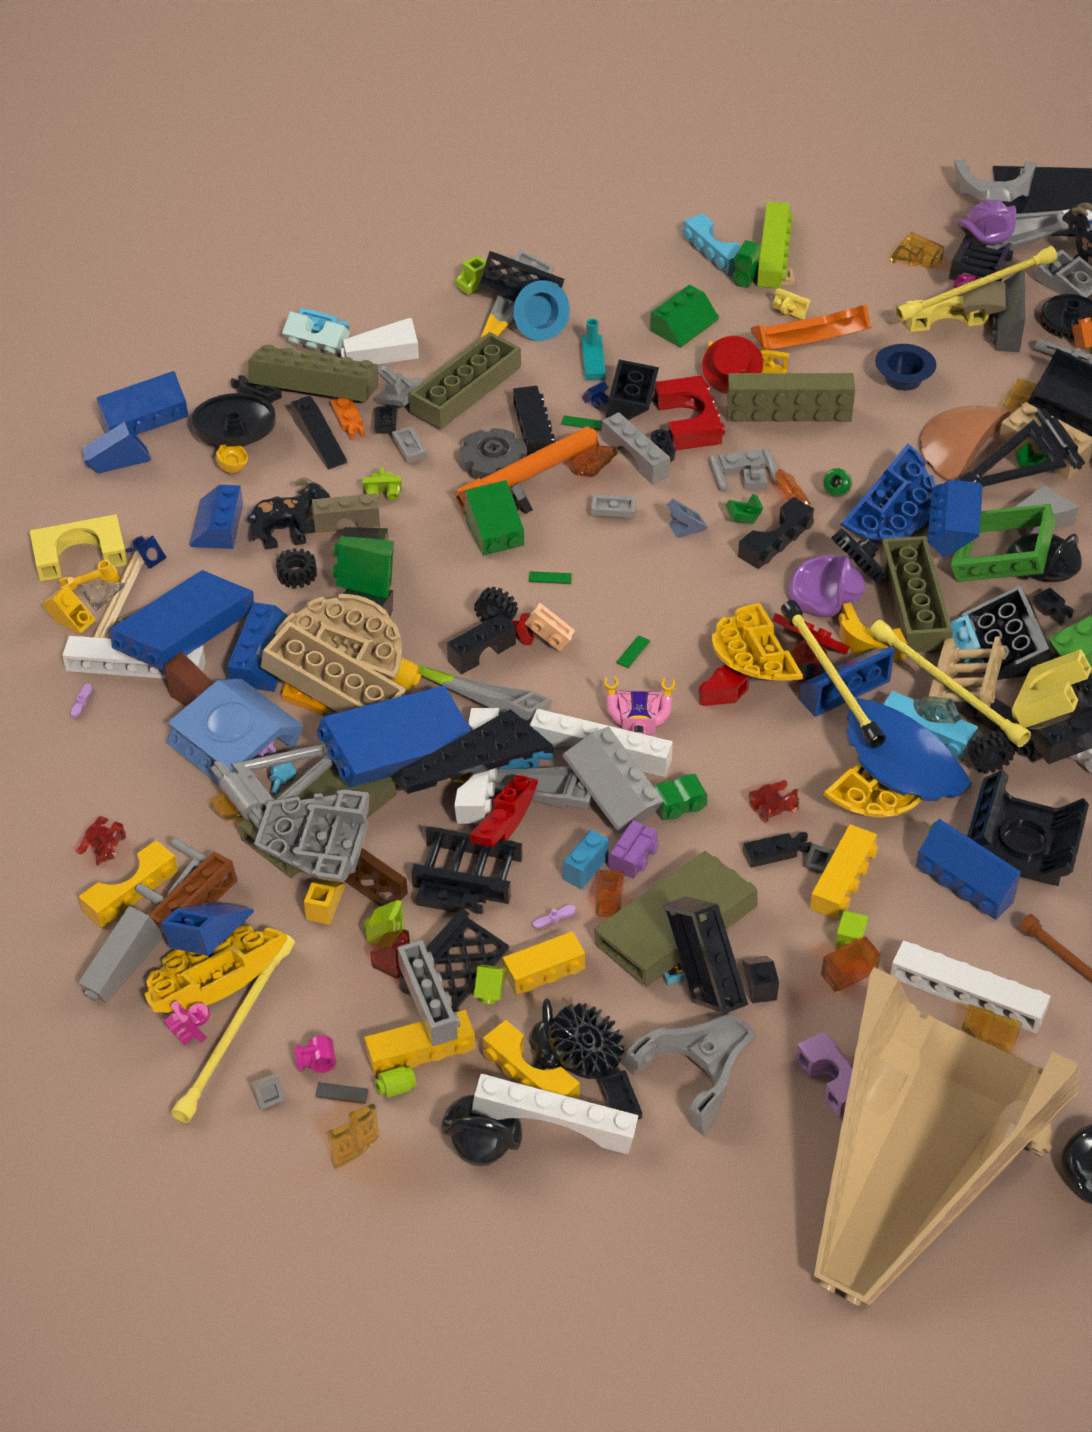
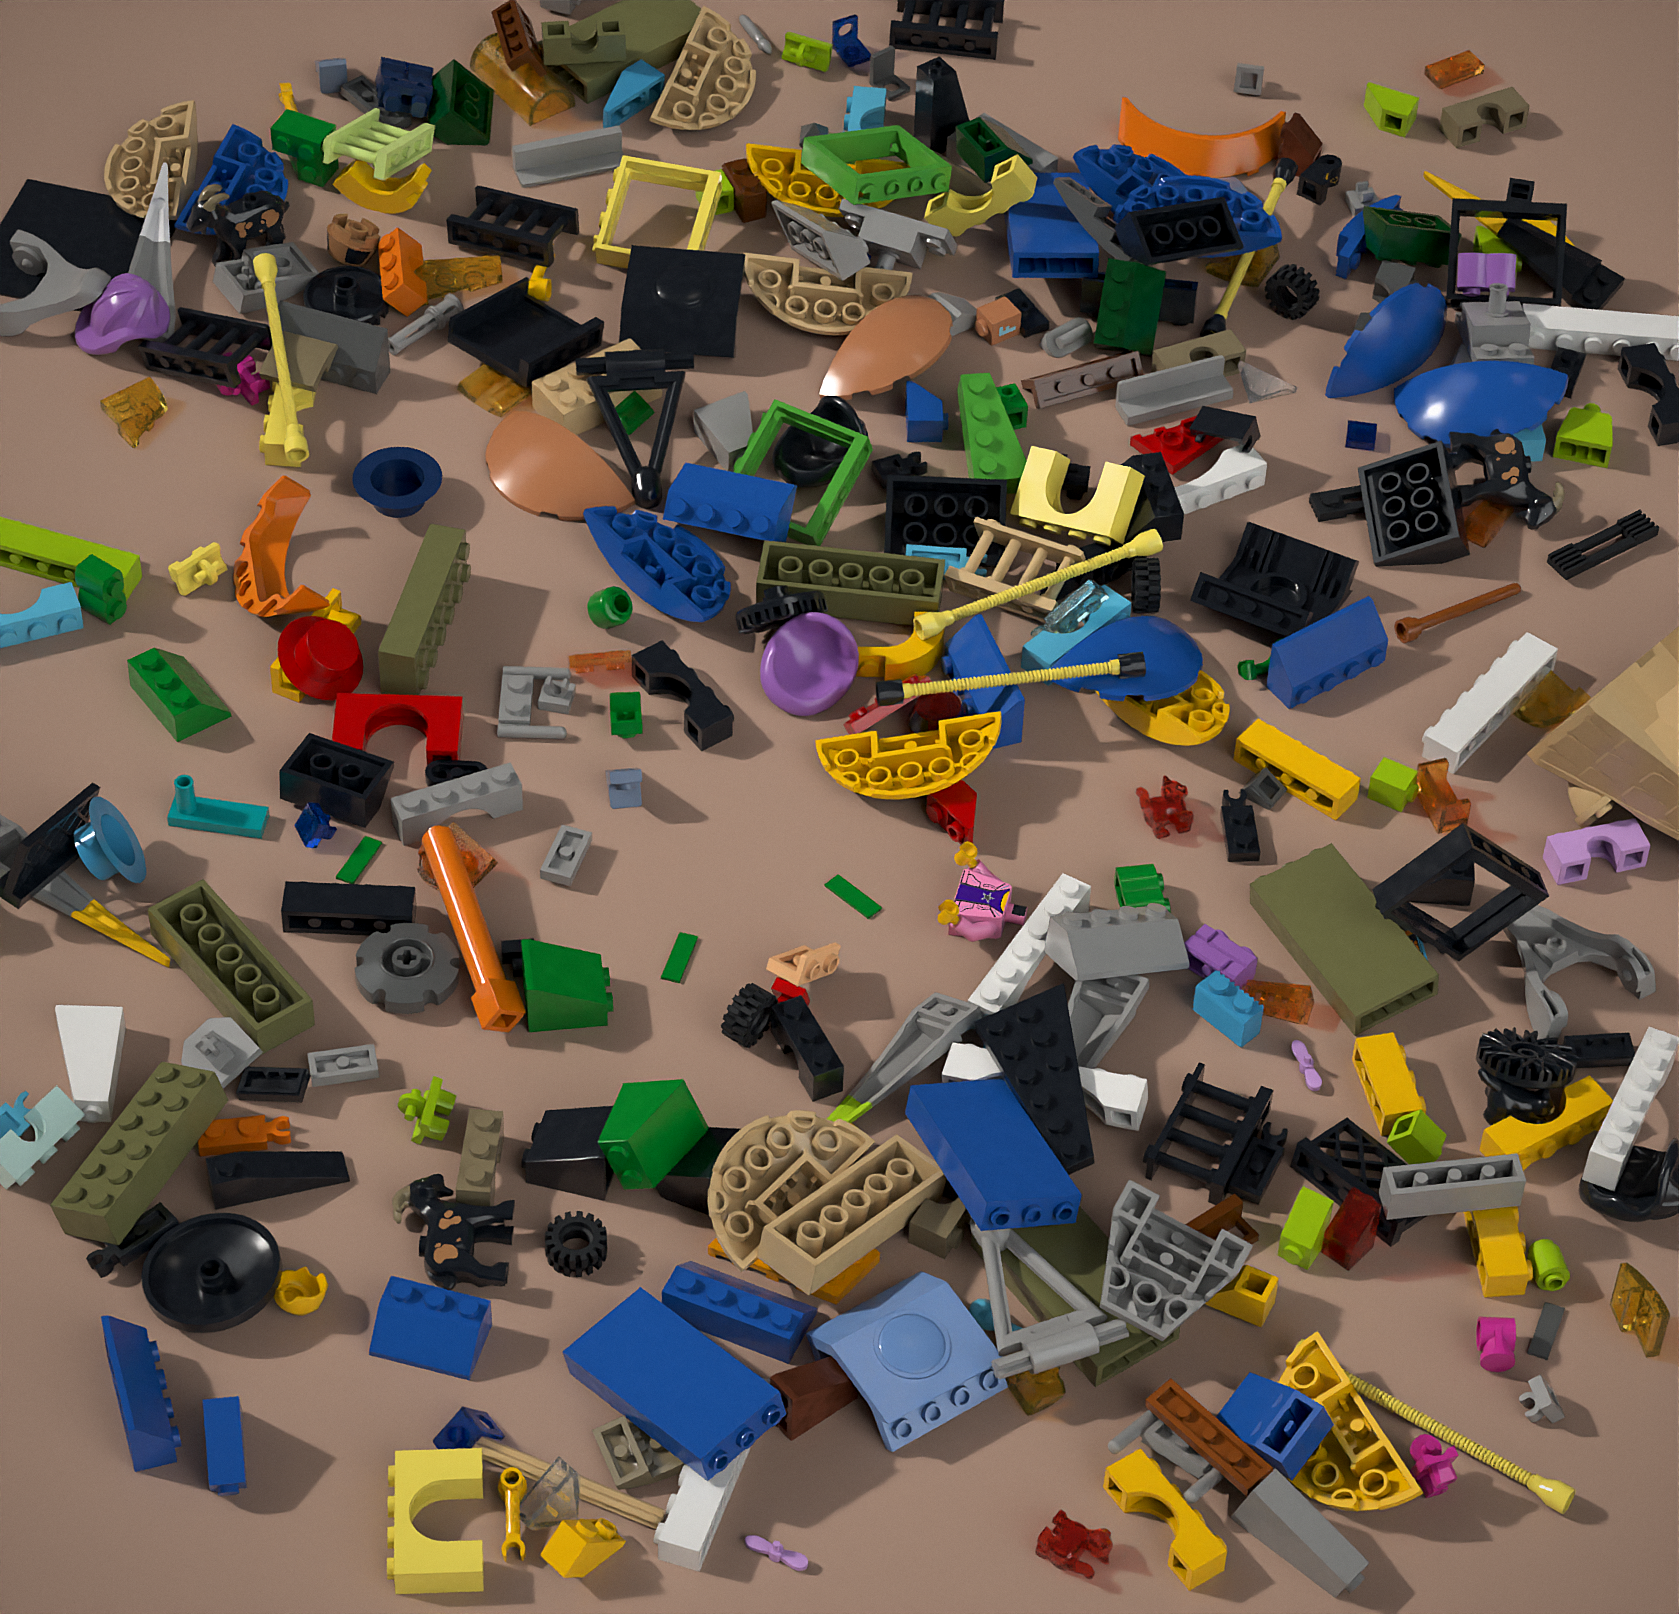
camera: 80 degrees left, 0 degrees up
(507, 813) = (1126, 1056): red slope -> none

